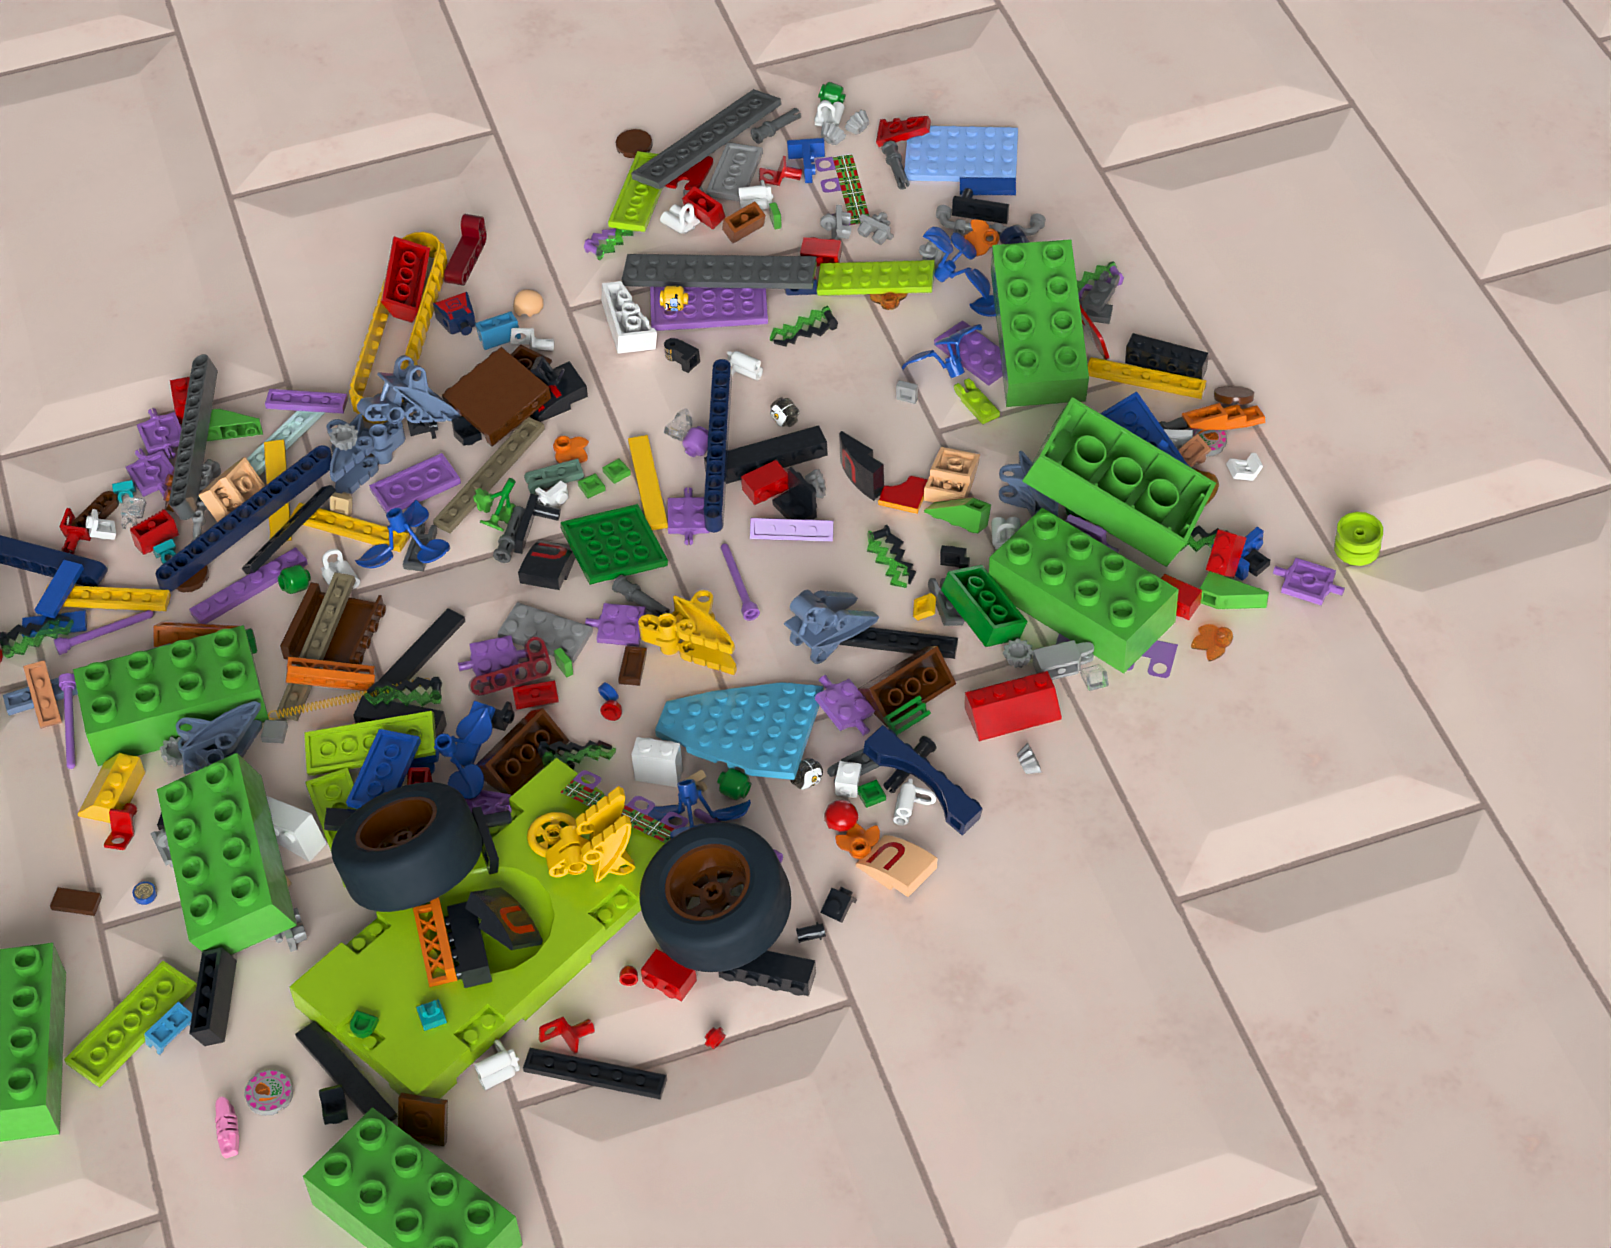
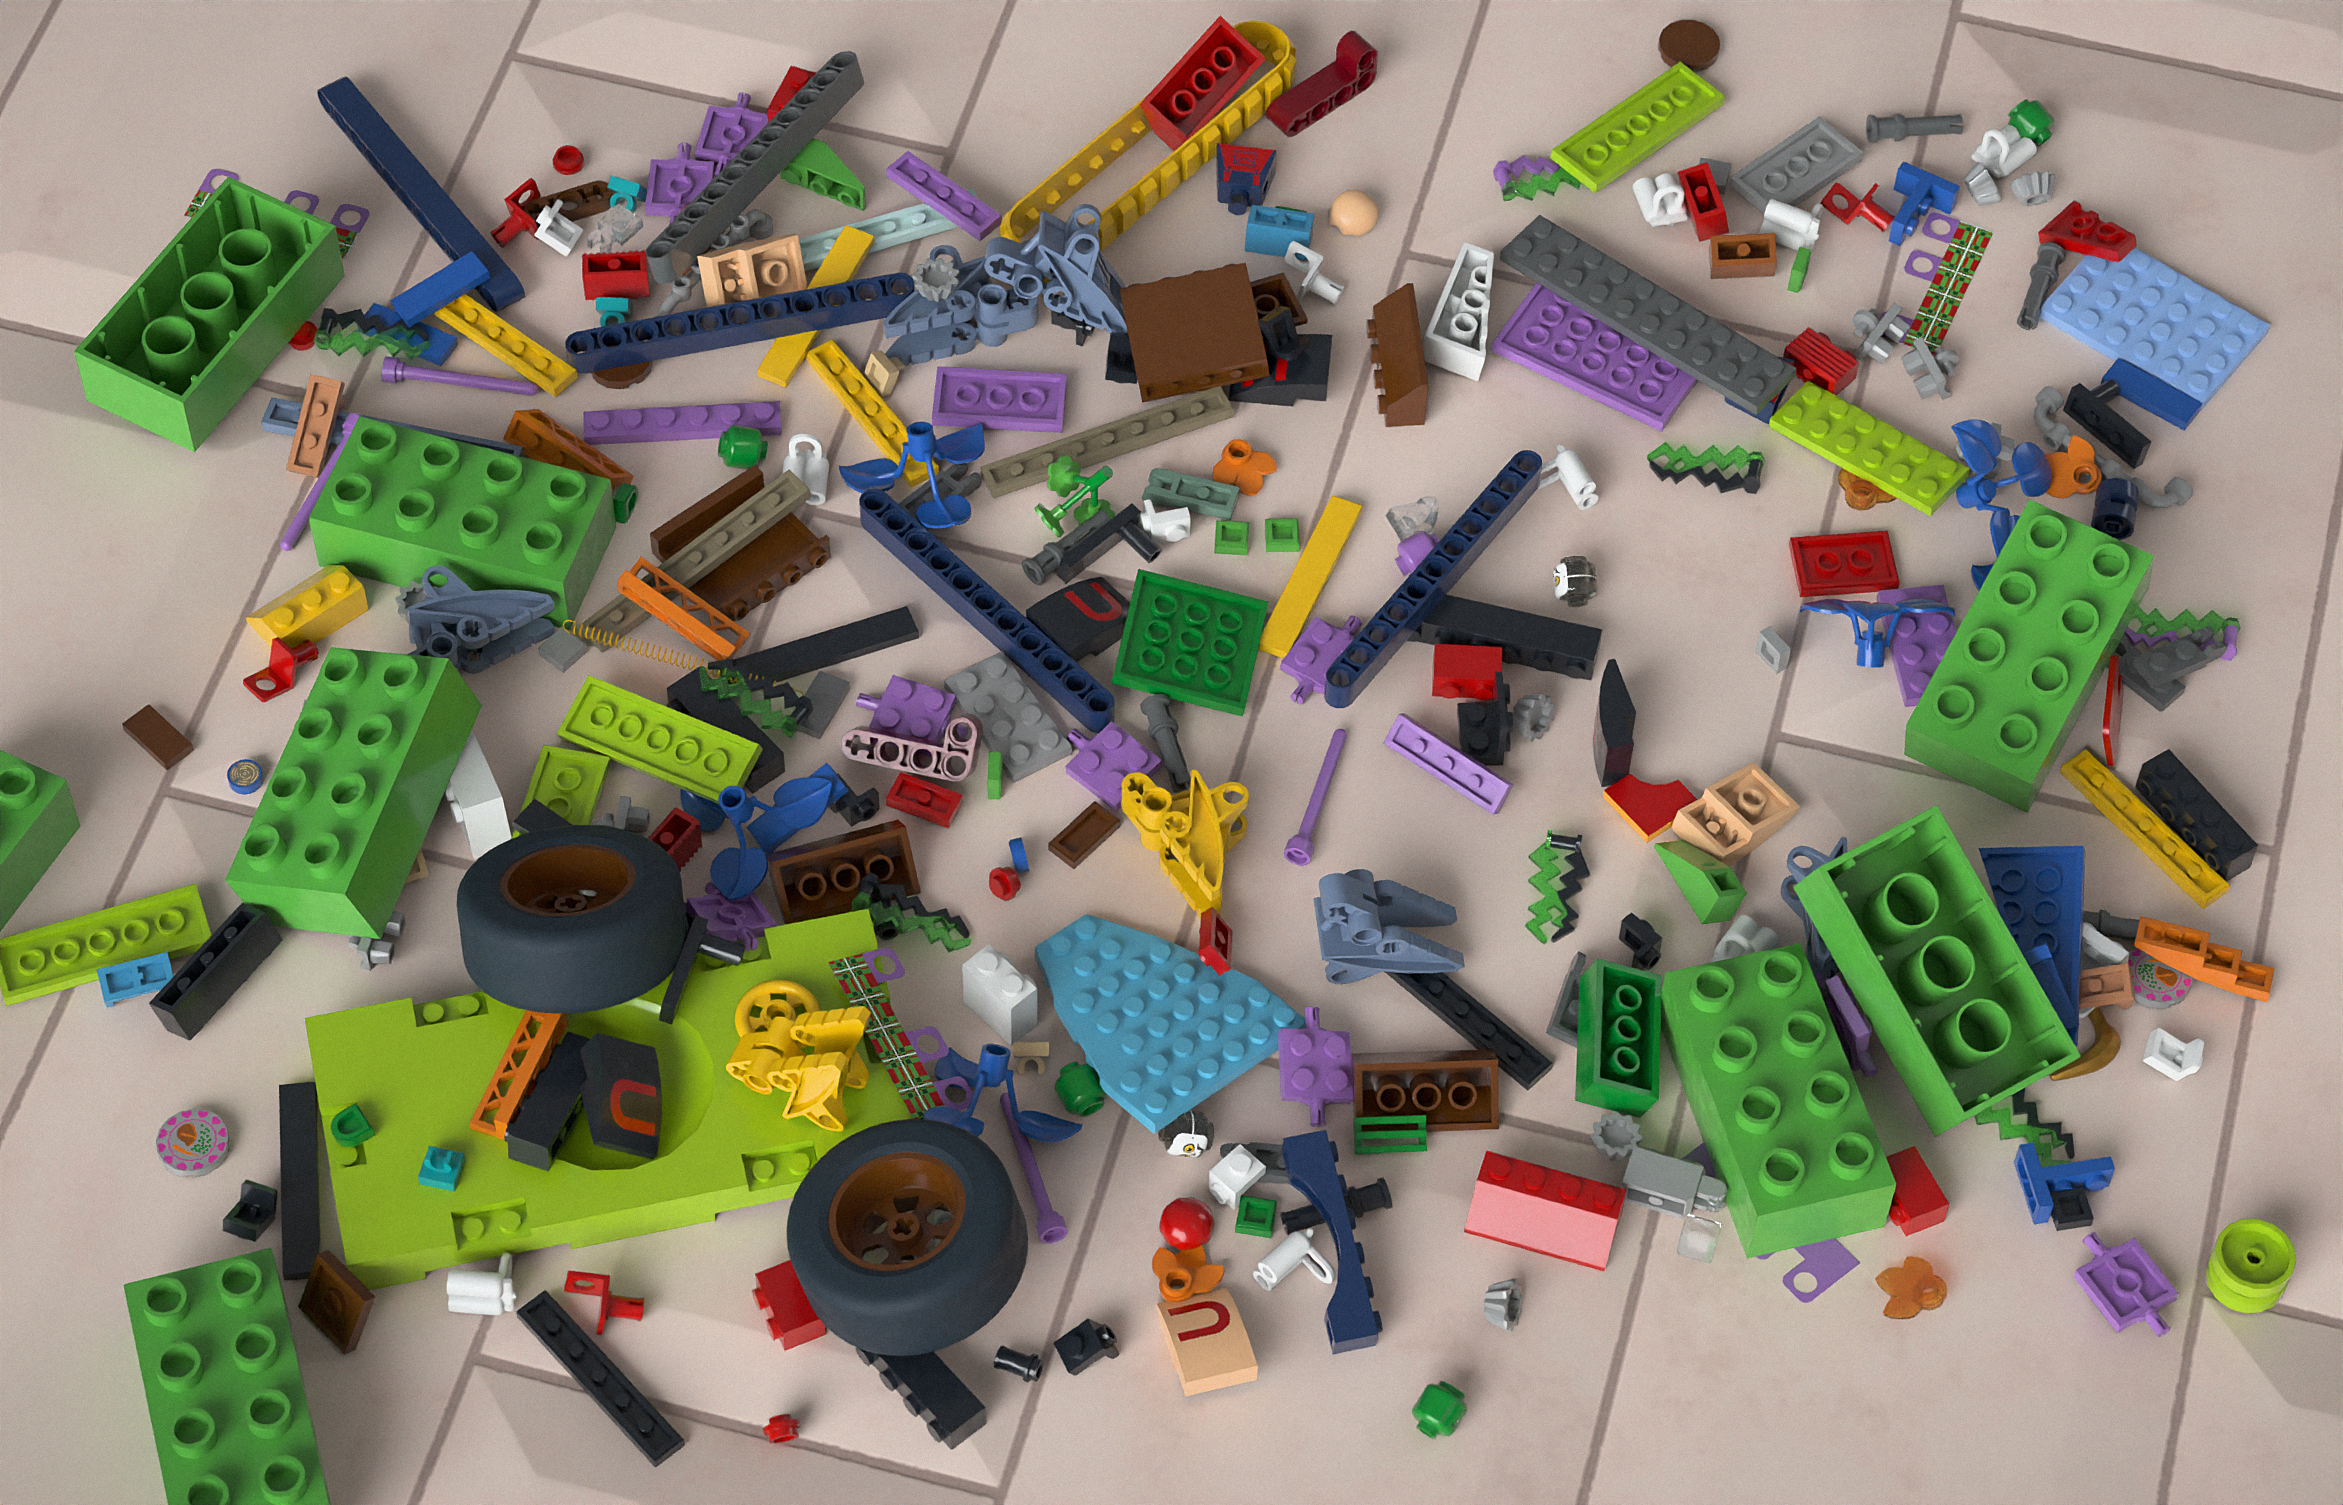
camera: 30 degrees right, 5 degrees up
(76, 491) = (568, 160): none -> red plate
(227, 1128) = (108, 1157): bright pink hinge -> none
(289, 529) = (784, 371): black tile -> none
(384, 766) = (643, 787): blue plate -> none
(441, 670) = (826, 697): none -> flat silver tile
(492, 586) = (949, 575): none -> dark blue beam
(611, 355) = (1399, 359): none -> reddish brown slope
(628, 976) = (741, 1271): red hinge -> none
(673, 298) = (1550, 319): yellow head -> none
(682, 353) = (1506, 412): black leg -> none
(694, 175) = (1736, 128): red piece -> none
(706, 139) = (1790, 95): dark grey plate -> none
(745, 675) = (1215, 941): none -> red plate
(906, 337) = (1843, 563): none -> red tile
(924, 606) = (1540, 988): yellow plate -> none
(976, 402) = (1864, 724): lime hinge -> none
(1039, 827) = (1439, 1410): none -> green head
(1226, 553) = (2022, 1171): red brick -> none
(1227, 593) = (1987, 1230): bright green slope -> none
(1232, 394) = (2249, 930): reddish brown tile -> none

